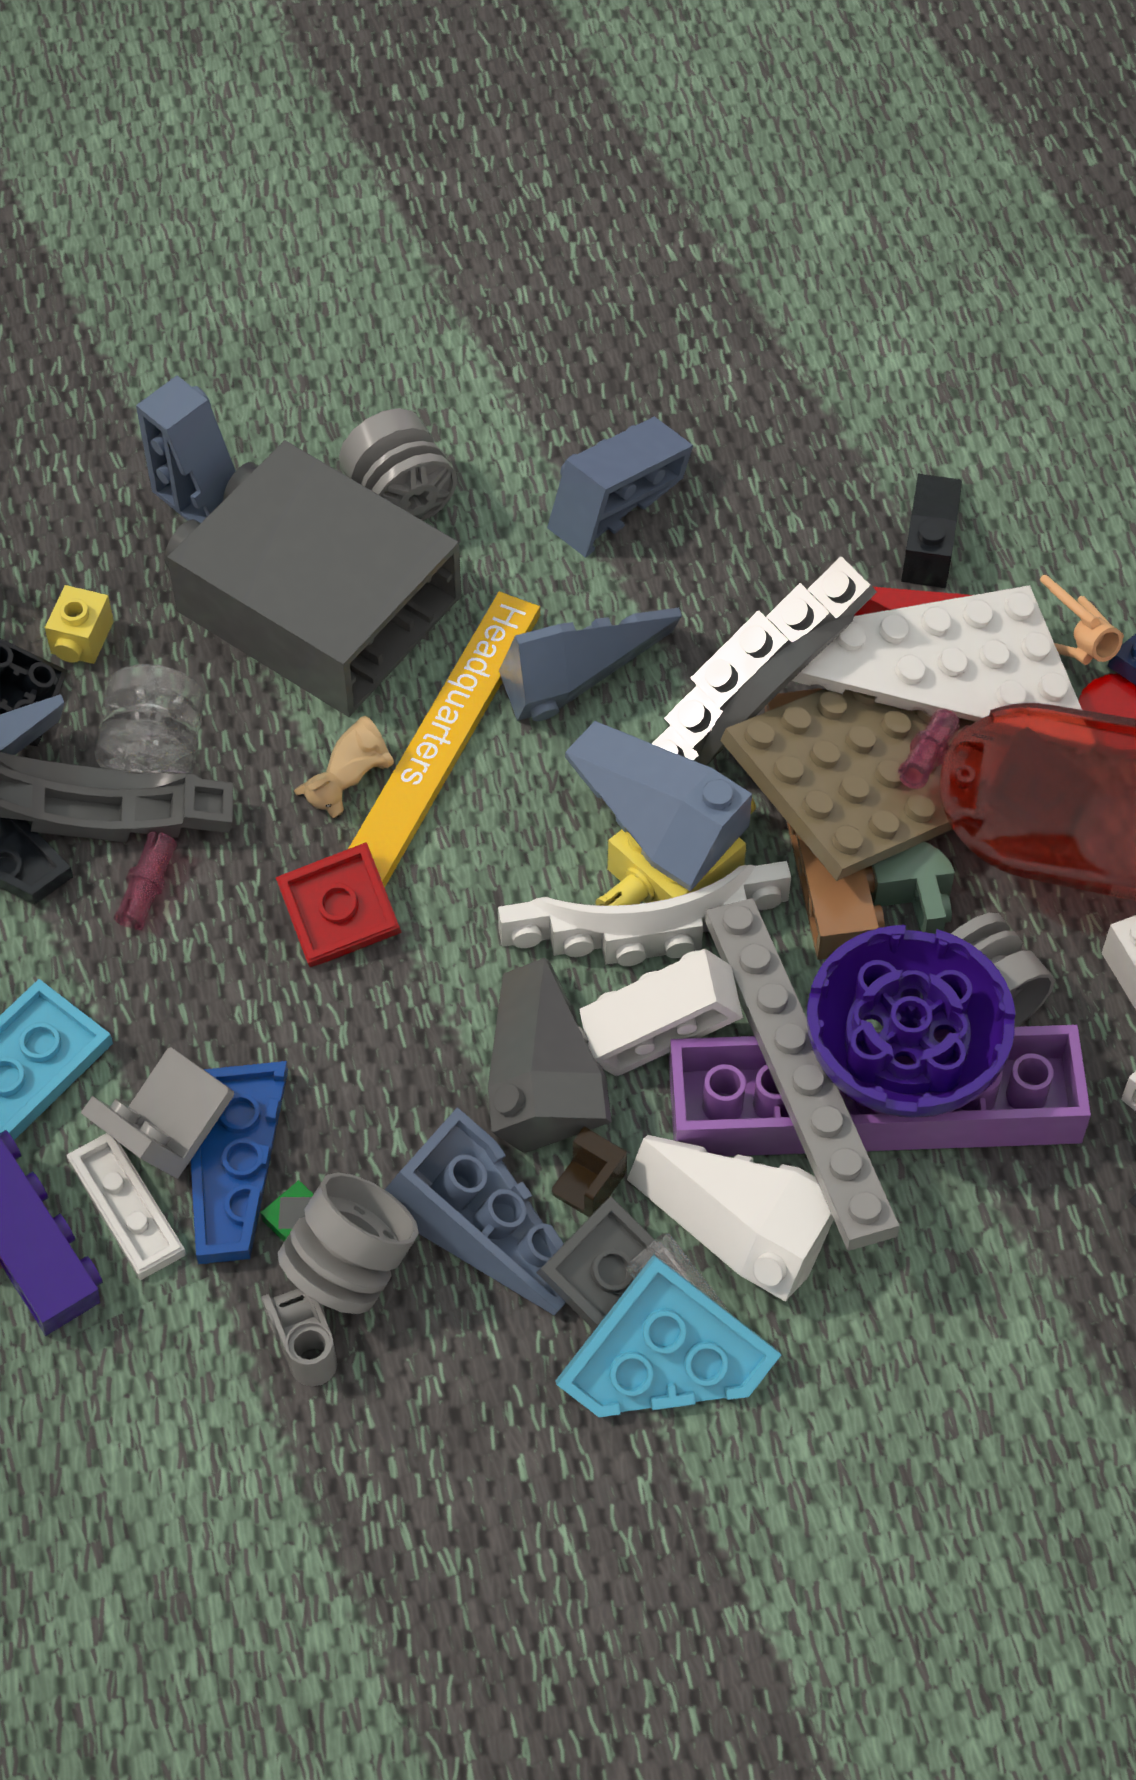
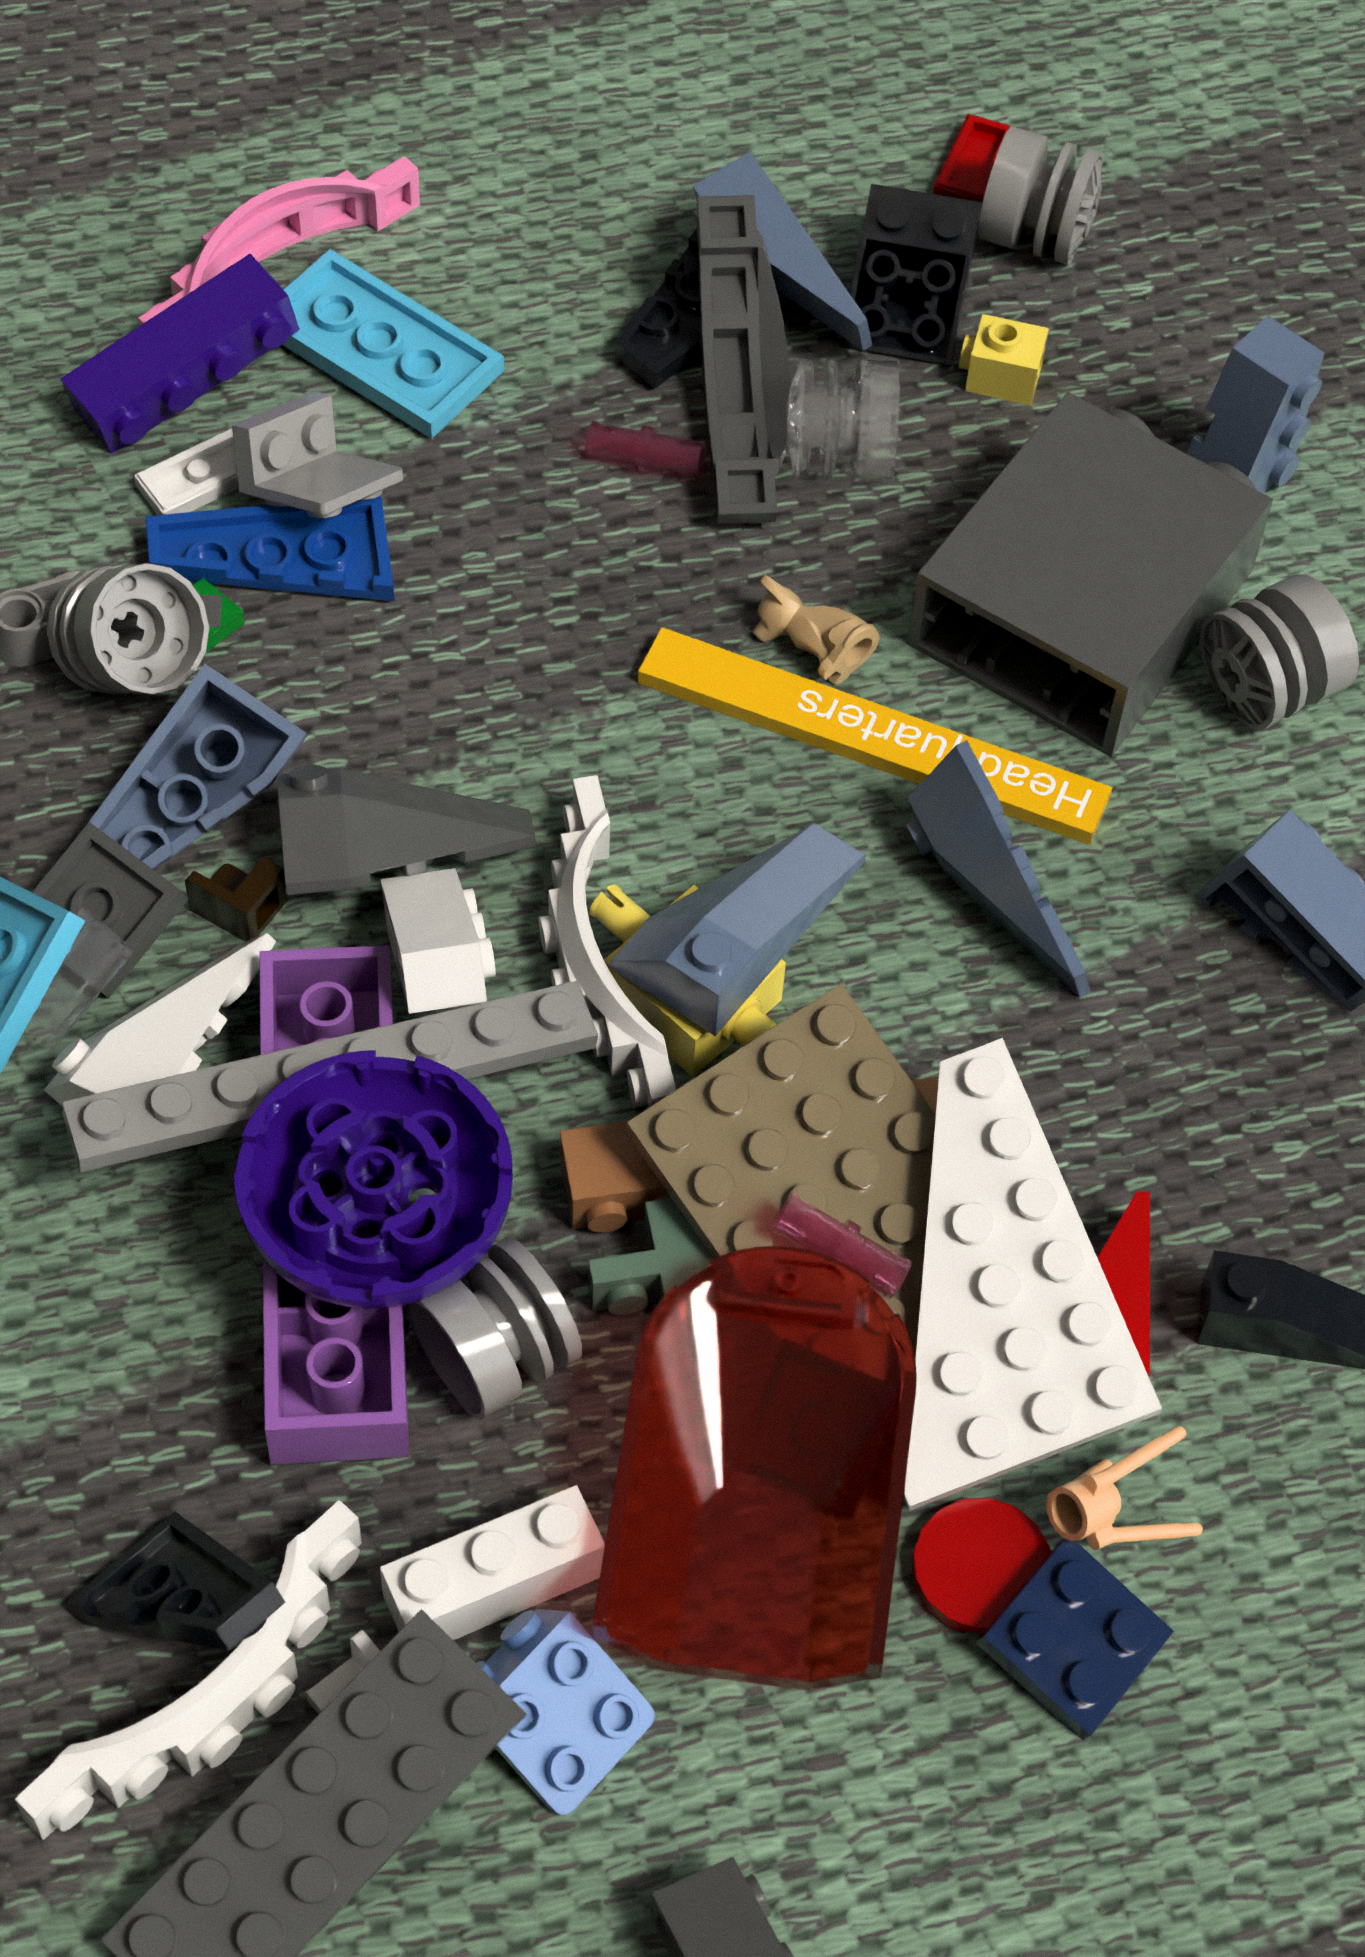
camera: 85 degrees right, 0 degrees up
(338, 905) = (614, 631): red plate -> none
(763, 661) = (970, 1035): piece -> none

